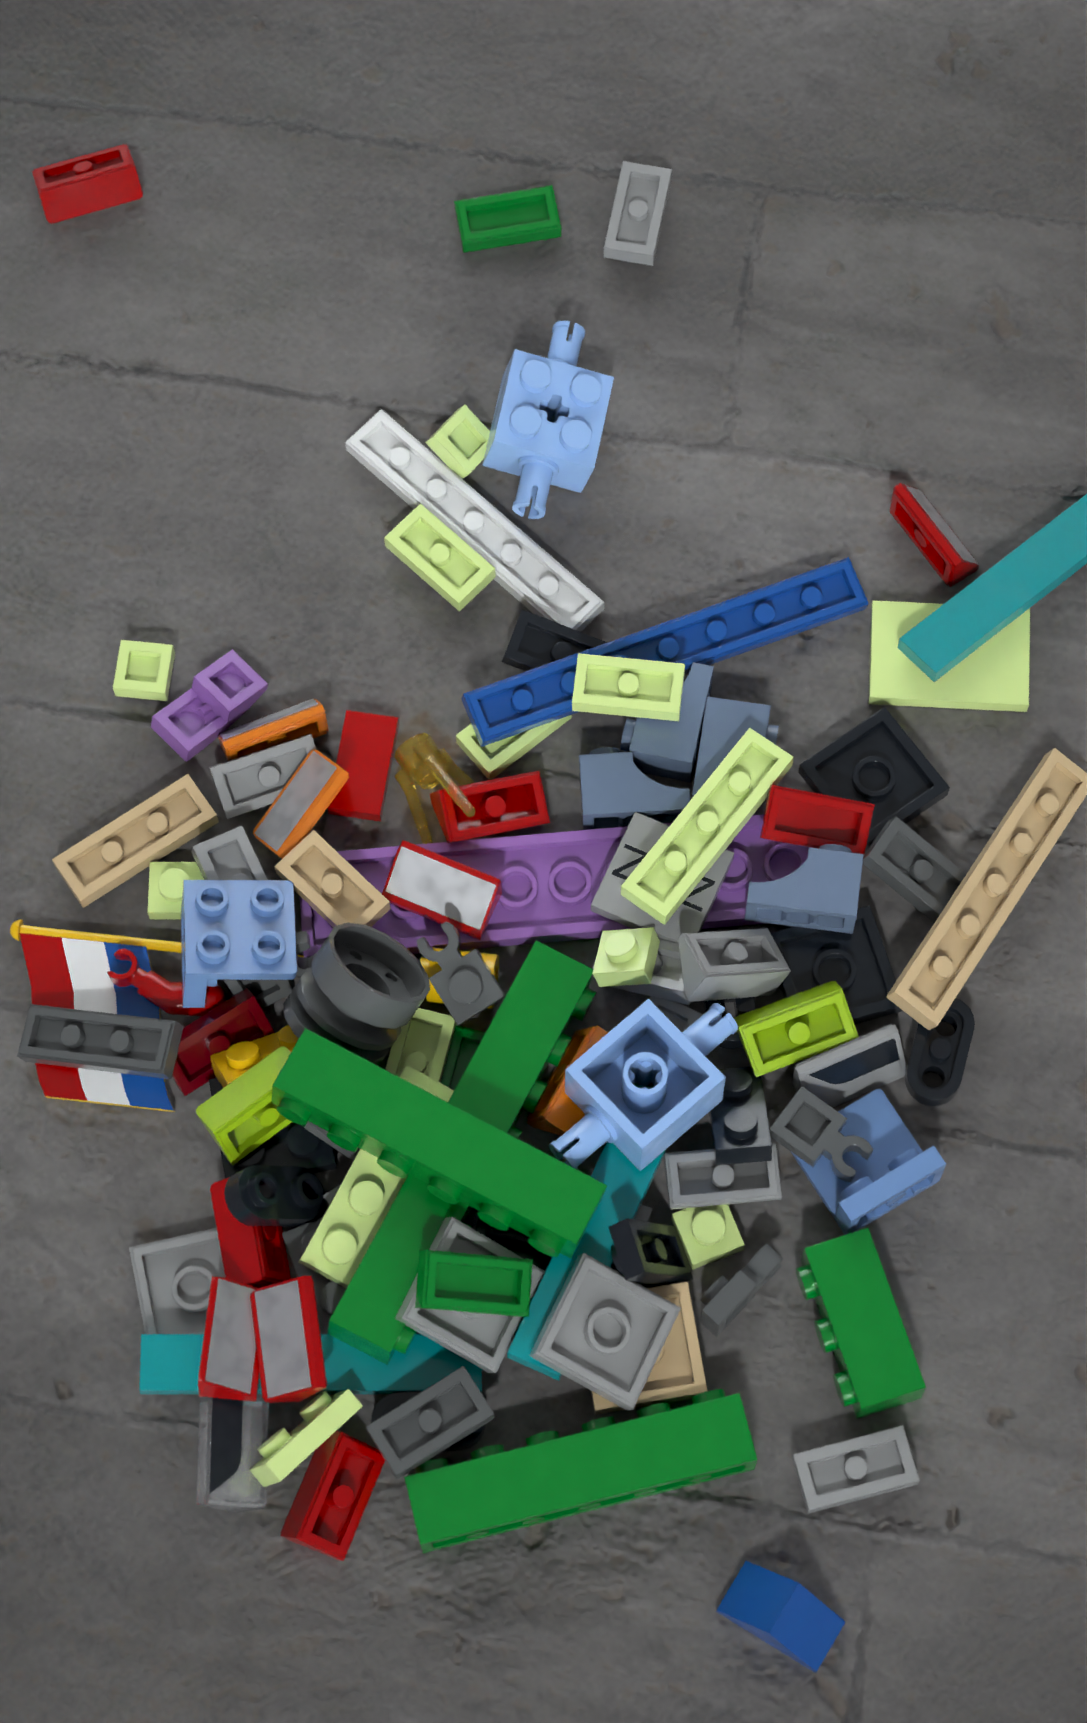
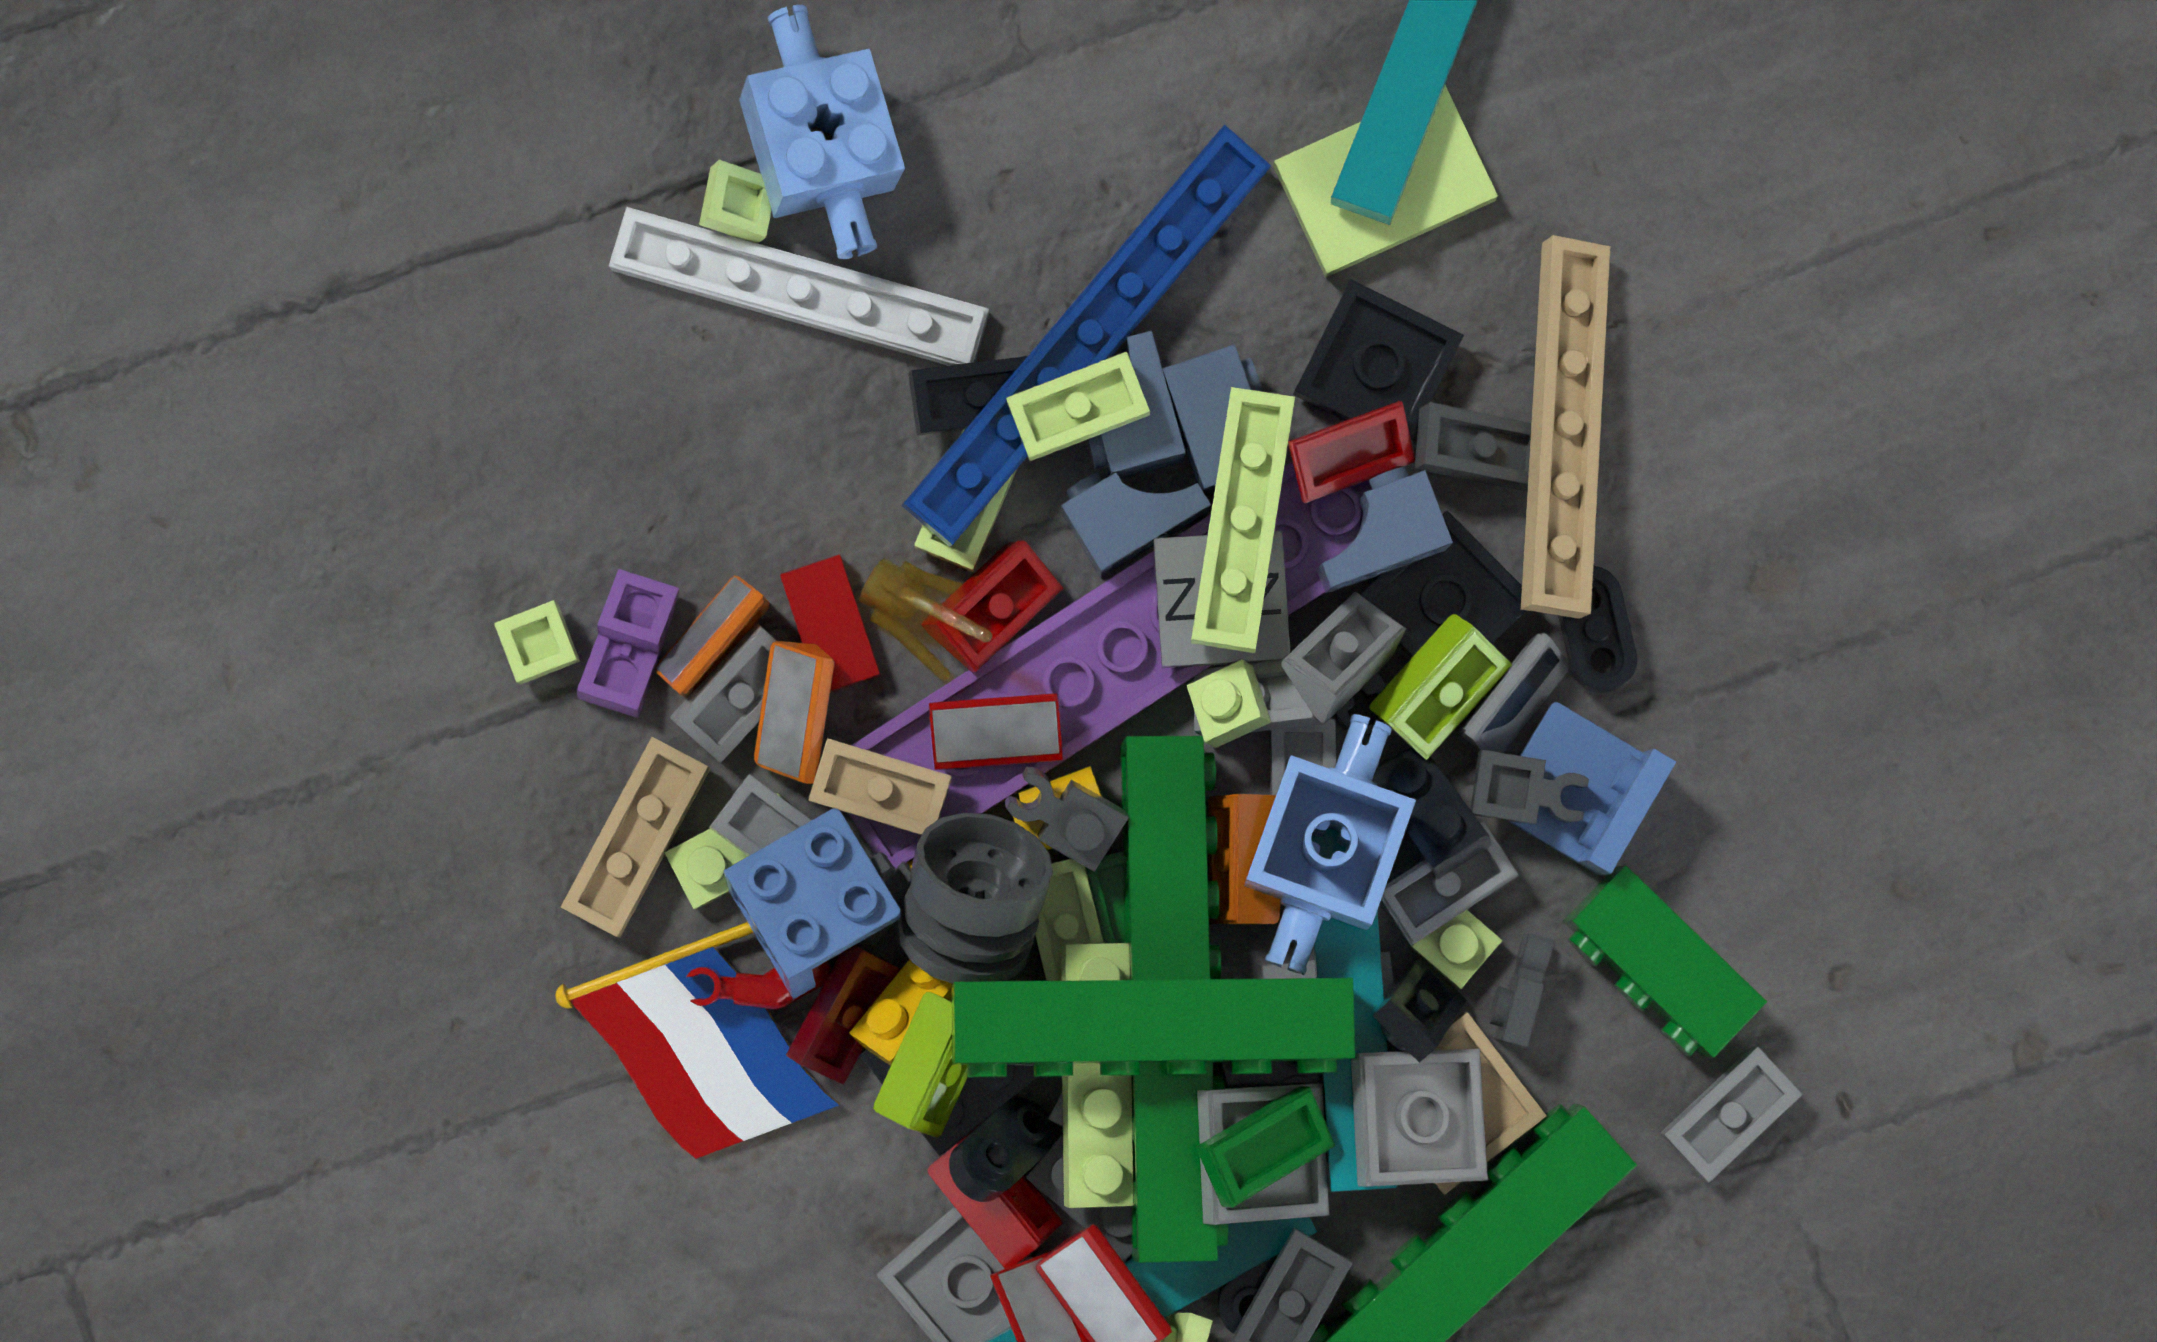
camera: 30 degrees left, 15 degrees up
(87, 183) = (145, 99): red slope -> none
(100, 1041) = (727, 1081): dark grey tile -> none
(440, 557) = (785, 348): yellowish green plate -> none
(781, 1614) = (1728, 1298): blue slope -> none
(931, 535) = (1298, 49): red slope -> none

